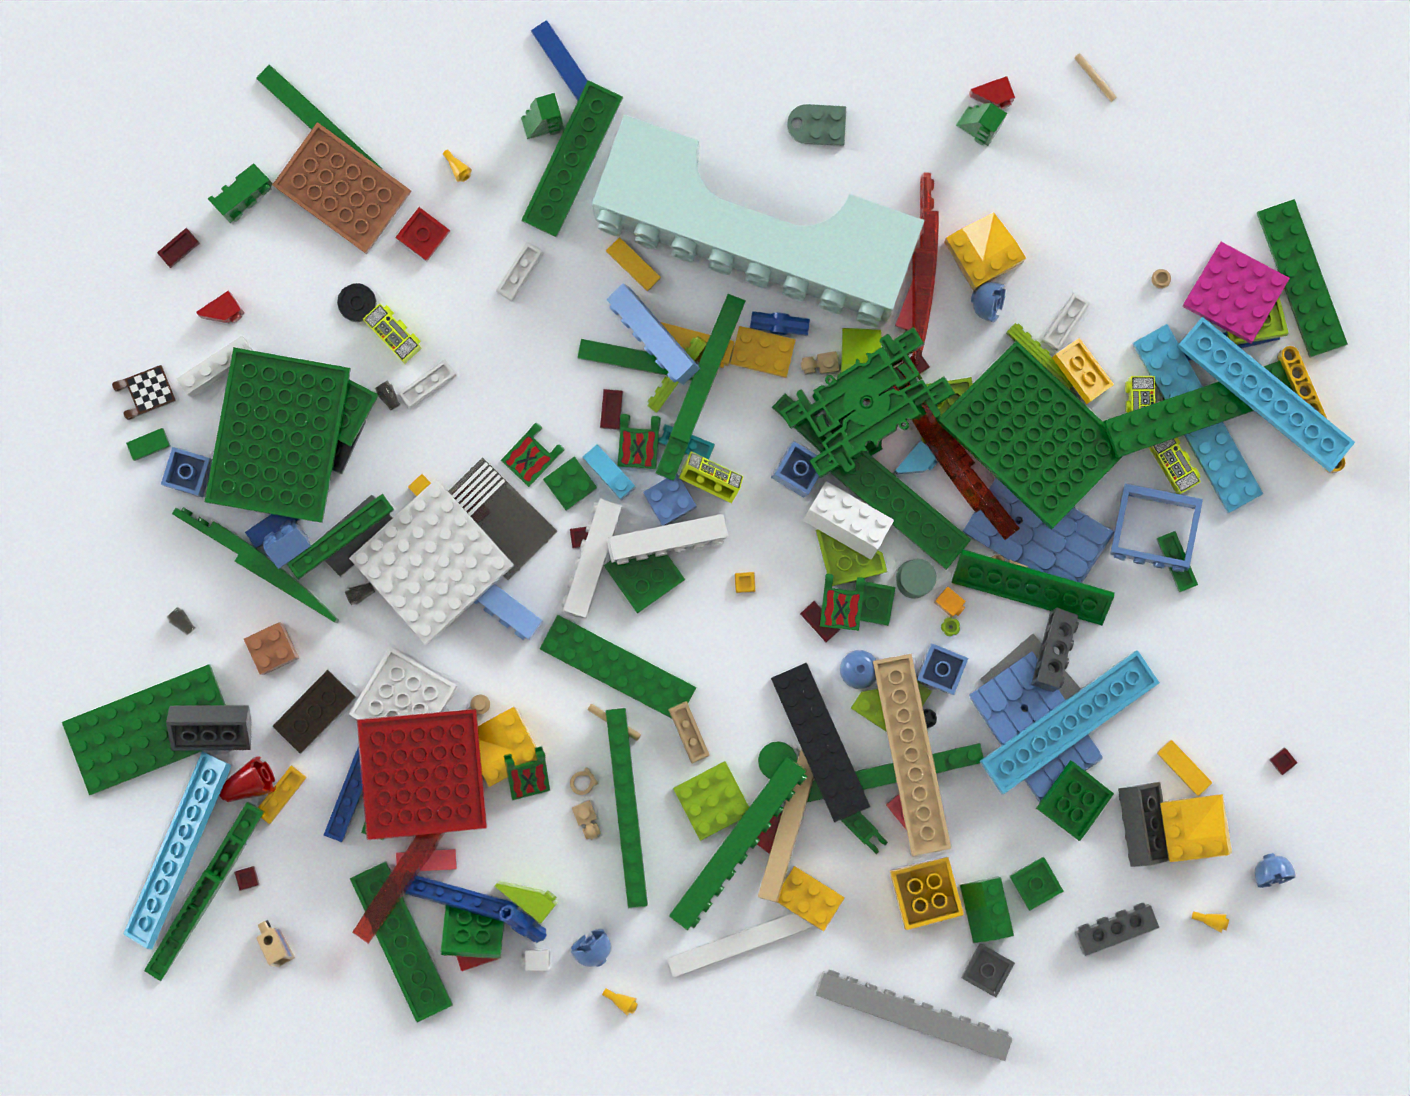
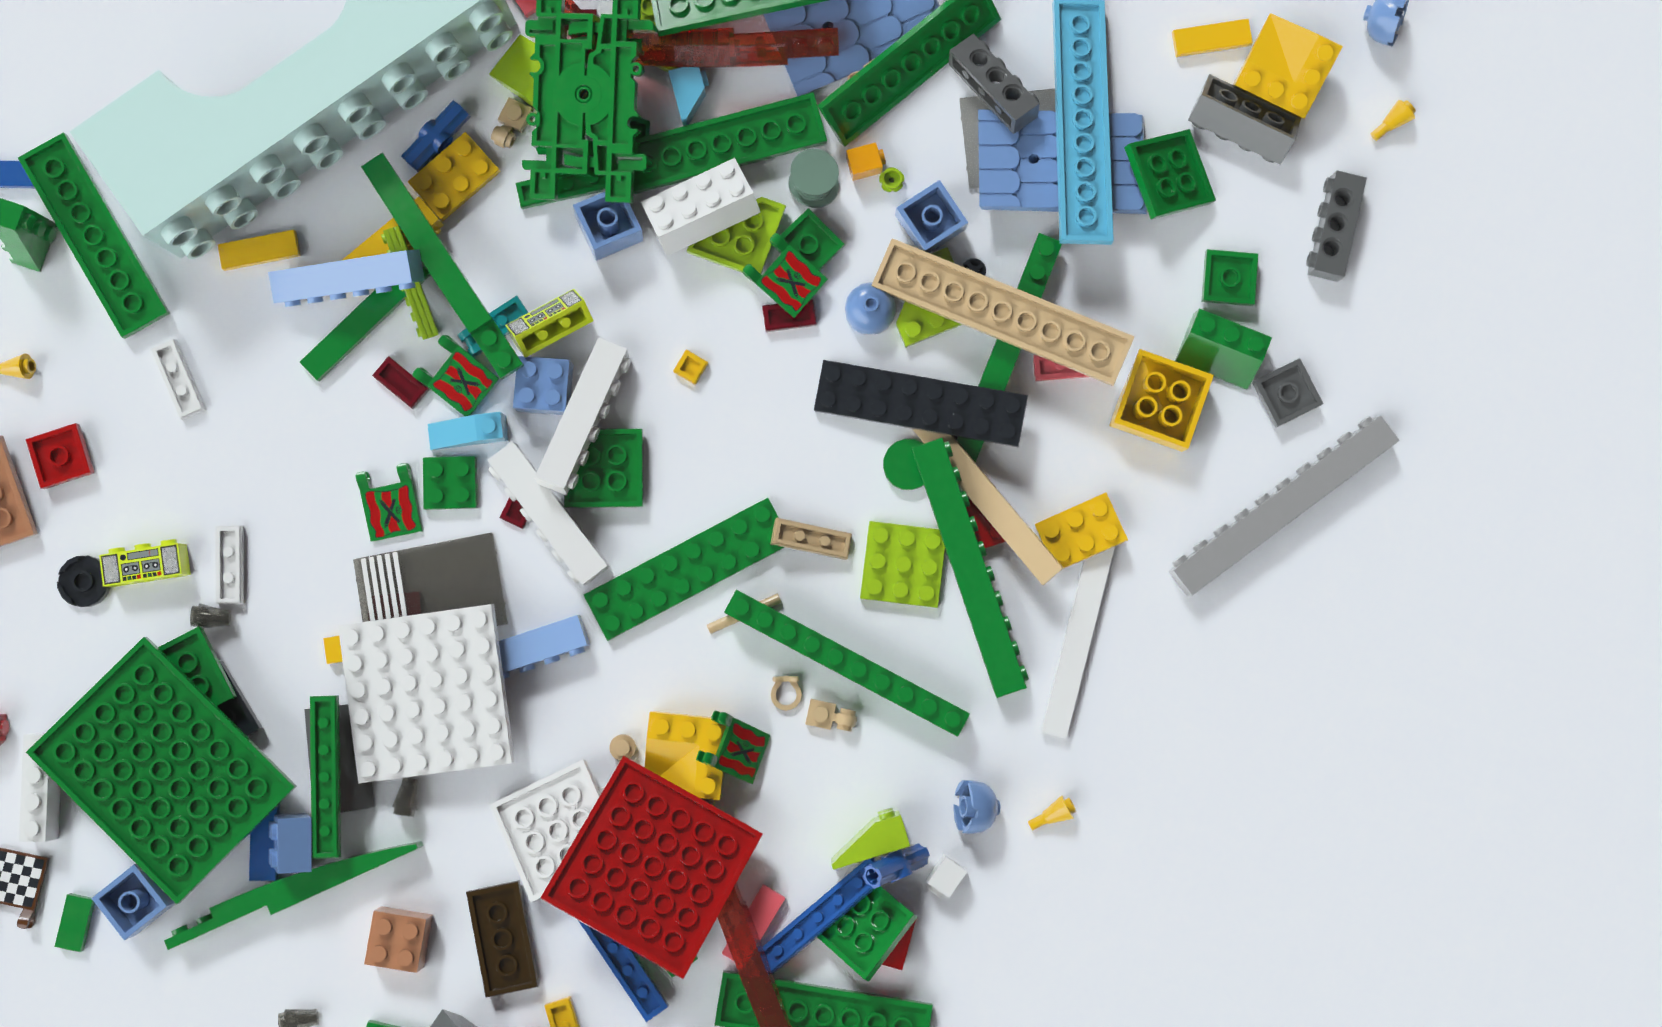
camera: 60 degrees left, 0 degrees up
(863, 830) = (1048, 422): green hinge -> none

